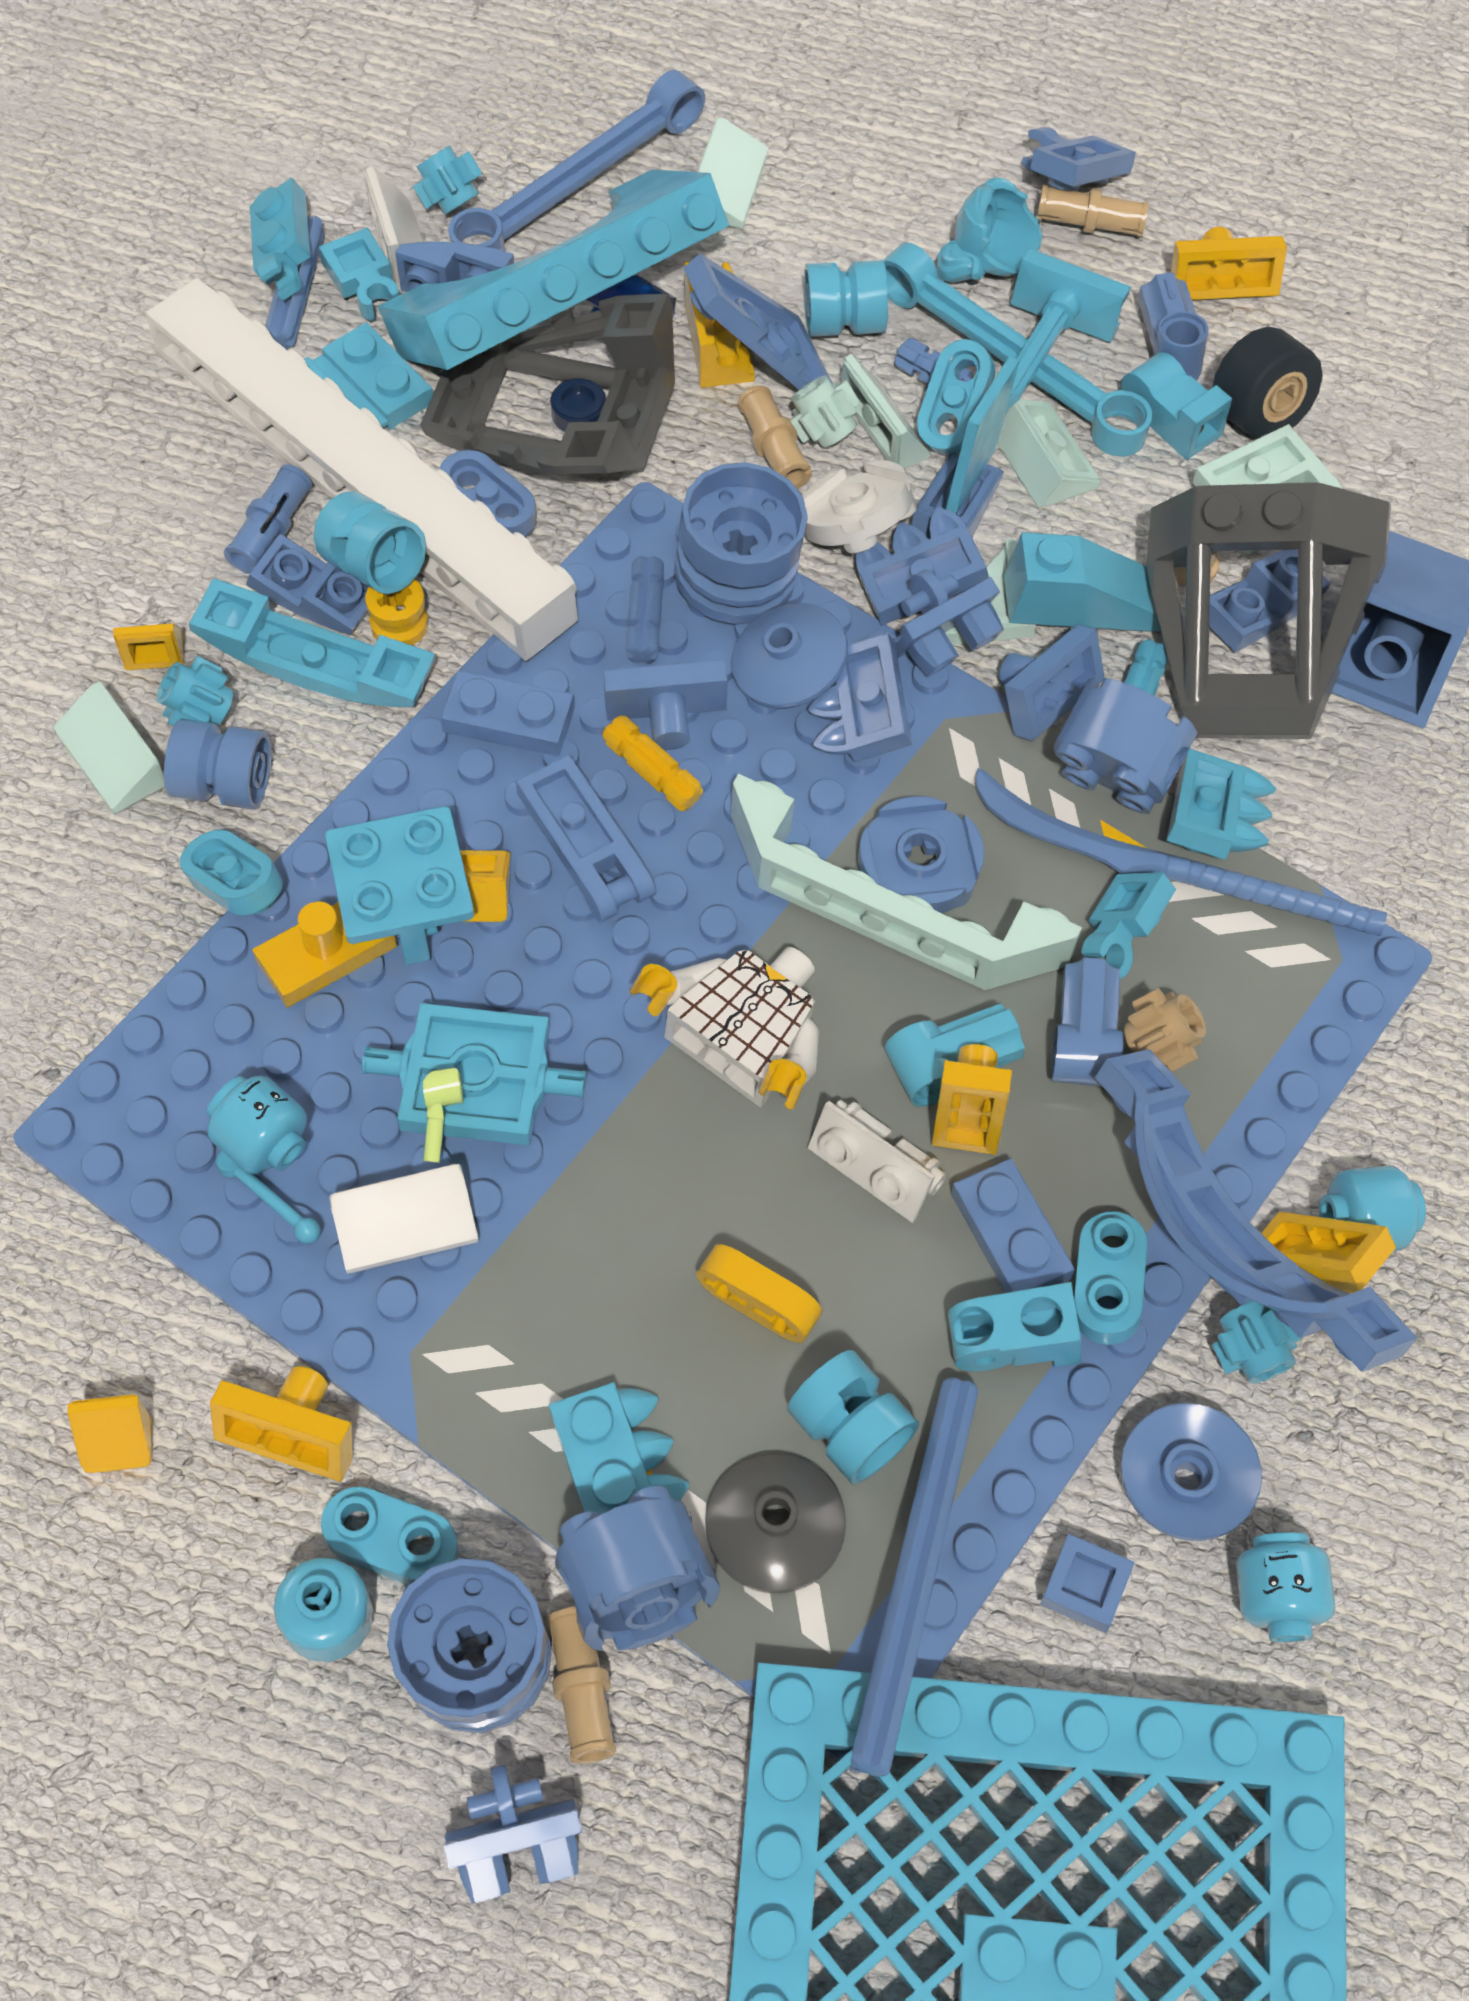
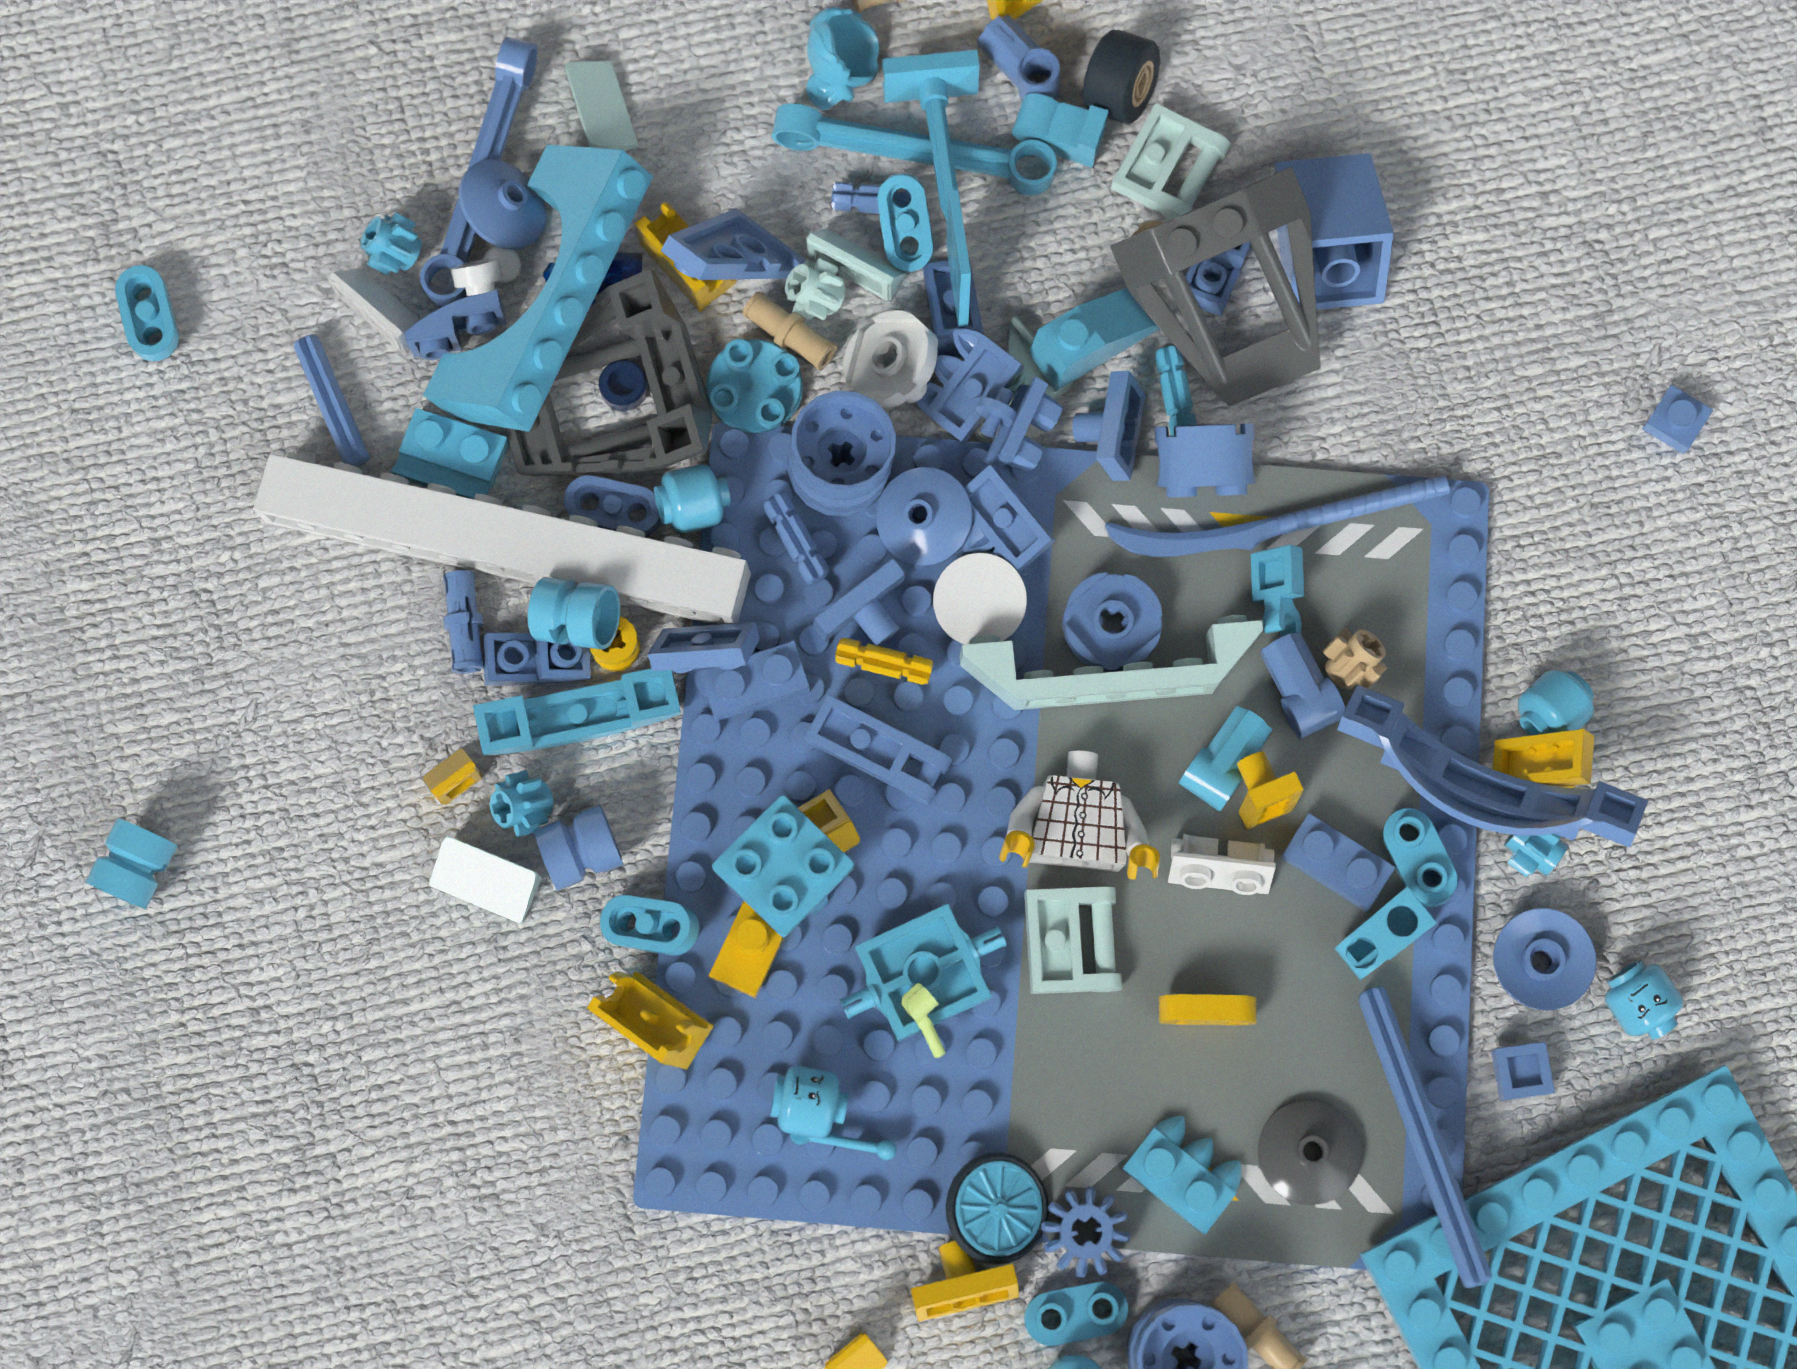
camera: 30 degrees left, 15 degrees up
(162, 958) = (652, 1019): none -> yellow hinge
(186, 131) = (147, 316): none -> medium azure plate
(280, 236) = (299, 374): medium azure plate -> none
(359, 268) = (375, 361): medium azure plate -> none
(380, 1362) = (996, 1208): none -> medium azure wheel
(403, 1218) = (947, 1104): white slope -> none
(434, 1457) = (1088, 1249): none -> medium blue gear
(461, 645) = (704, 647): none -> medium blue plate
(512, 234) = (479, 276): none -> white plate
(565, 516) = (691, 498): none -> medium azure head
(568, 191) = (501, 205): none -> medium blue dish
(635, 1570) = (1256, 1247): medium blue brick -> none
(641, 1126) = (1056, 940): none -> light aqua plate
(694, 449) = (754, 385): none -> medium azure dish
(797, 753) = (979, 598): none -> white sticker
(846, 298) = (769, 176): medium azure wheel -> none
(848, 1412) = (1340, 1064): medium azure wheel -> none
(1045, 453) = (994, 225): light aqua slope -> none
(1218, 806) = (1286, 461): medium azure plate -> none

